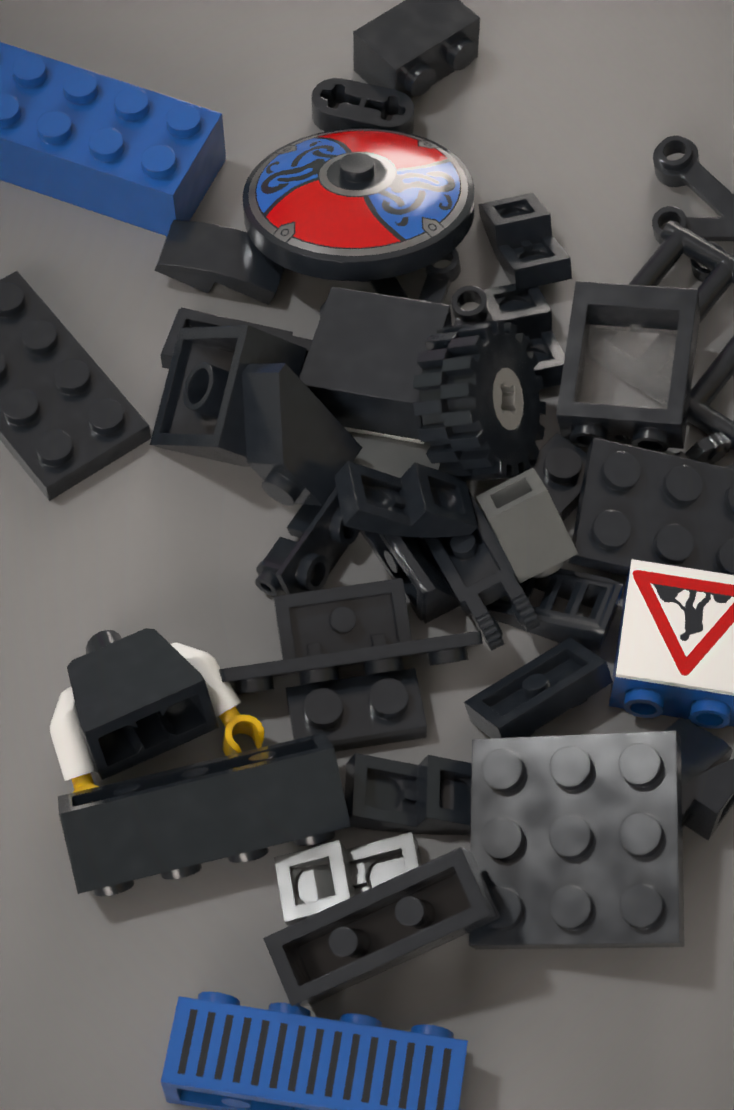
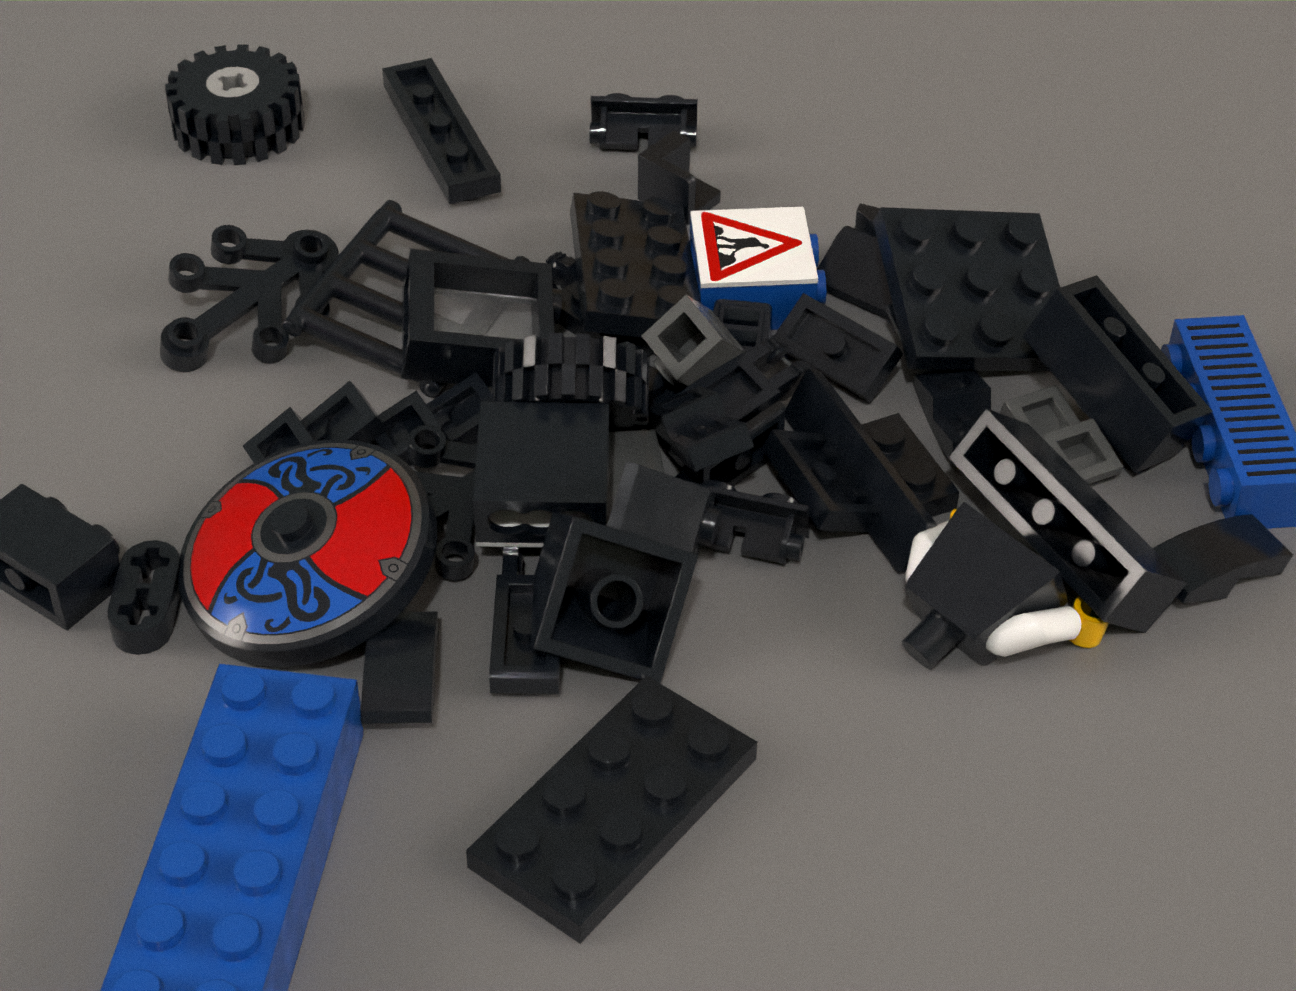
camera: 105 degrees left, 15 degrees down
(127, 967) = (1220, 554): none -> black slope

